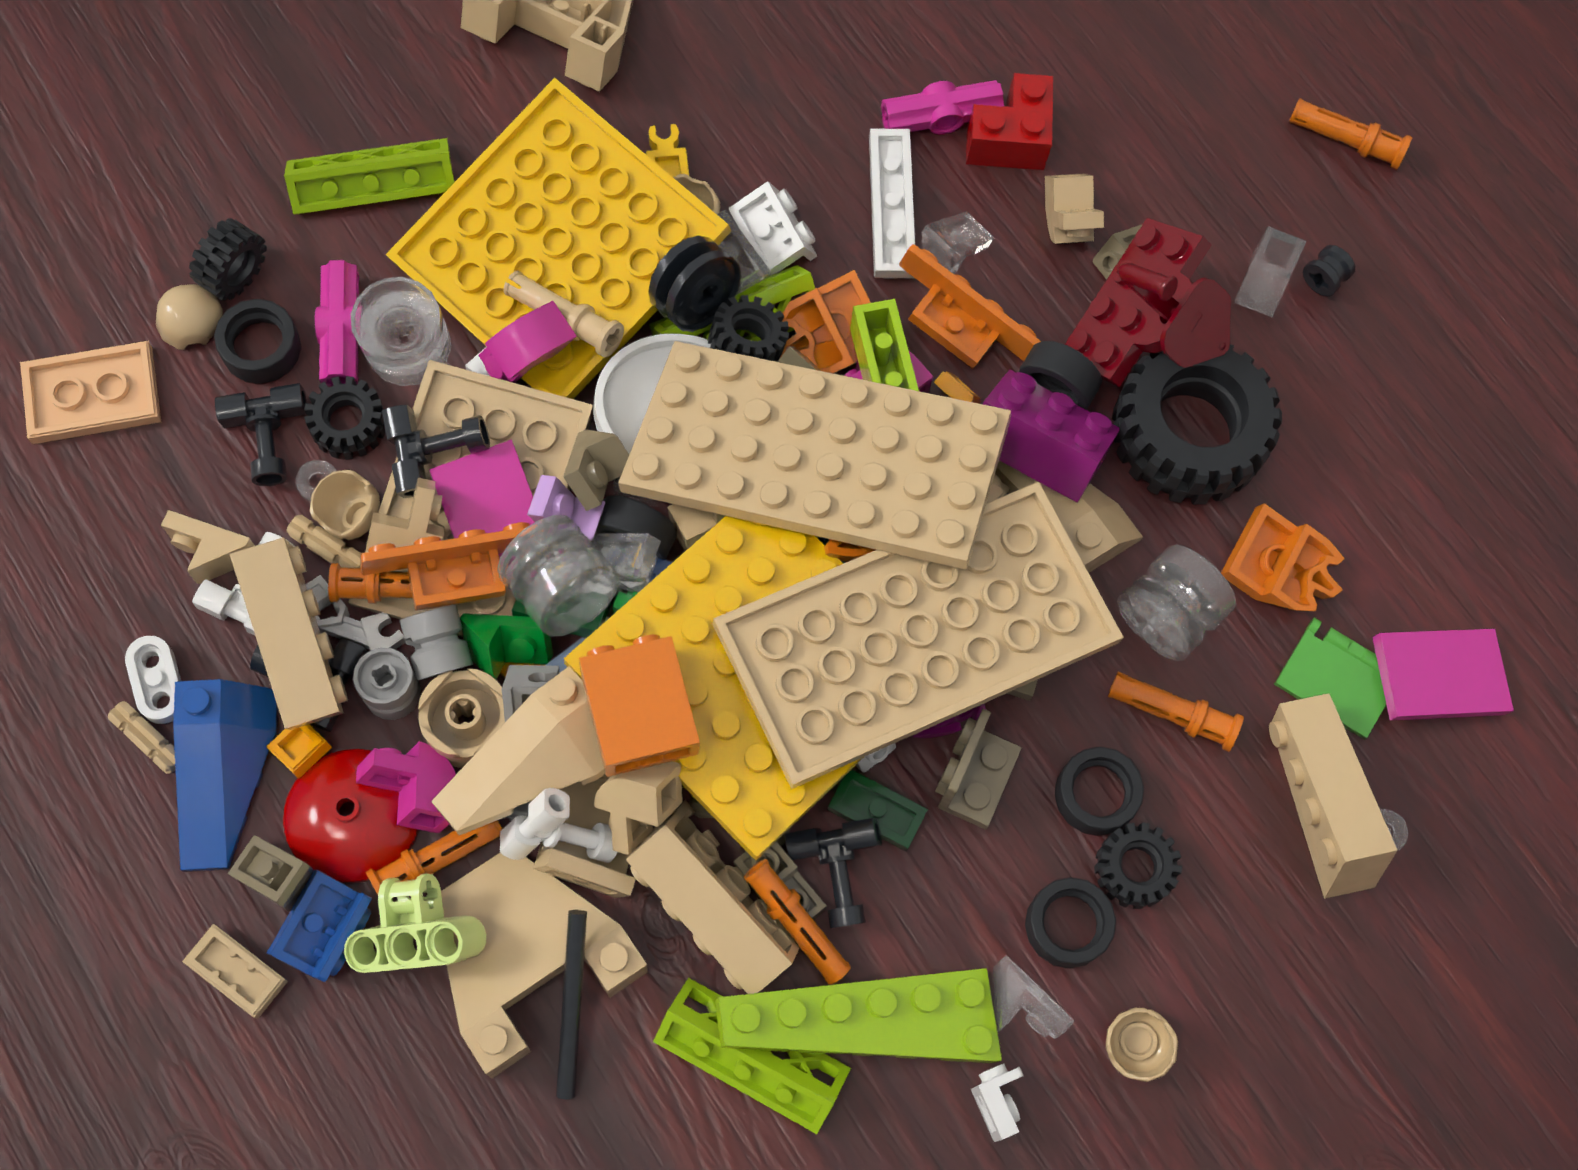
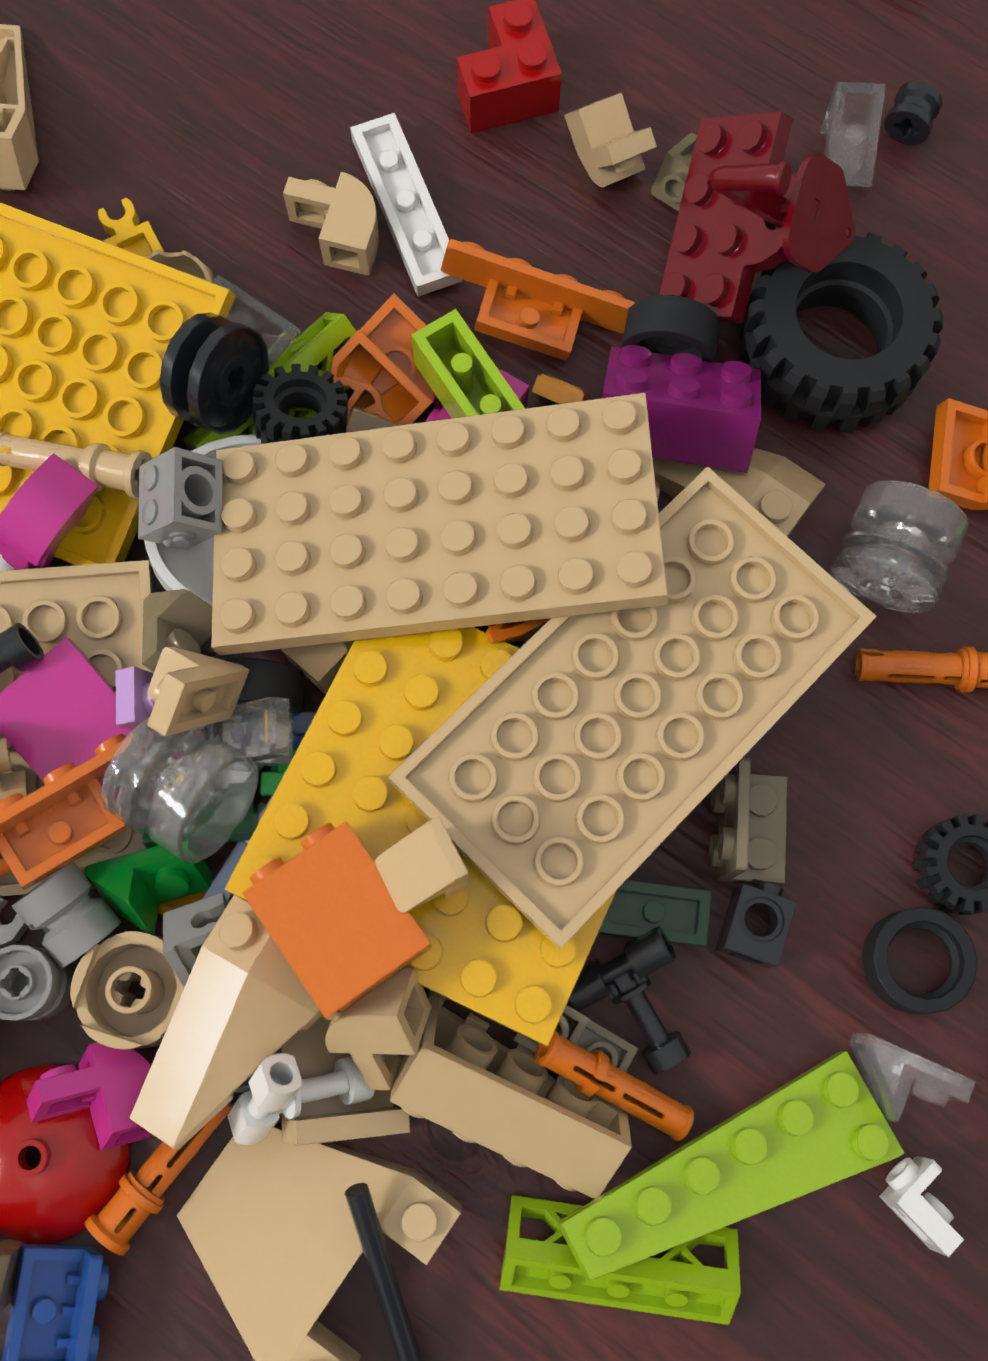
camera: 15 degrees left, 5 degrees up
(409, 919) = (168, 1283): yellowish green beam -> none
(594, 508) = (193, 690): none -> tan slope
(635, 367) = (180, 498): none -> light grey head
(715, 687) = (422, 867): none -> tan slope
(772, 228) = (280, 278): white bracket -> none
(840, 197) = (343, 214): none -> tan brick
(939, 106) = (417, 76): dark pink piece -> none
(939, 860) = (739, 941): none -> black brick
(955, 239) = (493, 219): clear slope -> none
(1118, 764) = (923, 770): black tyre -> none

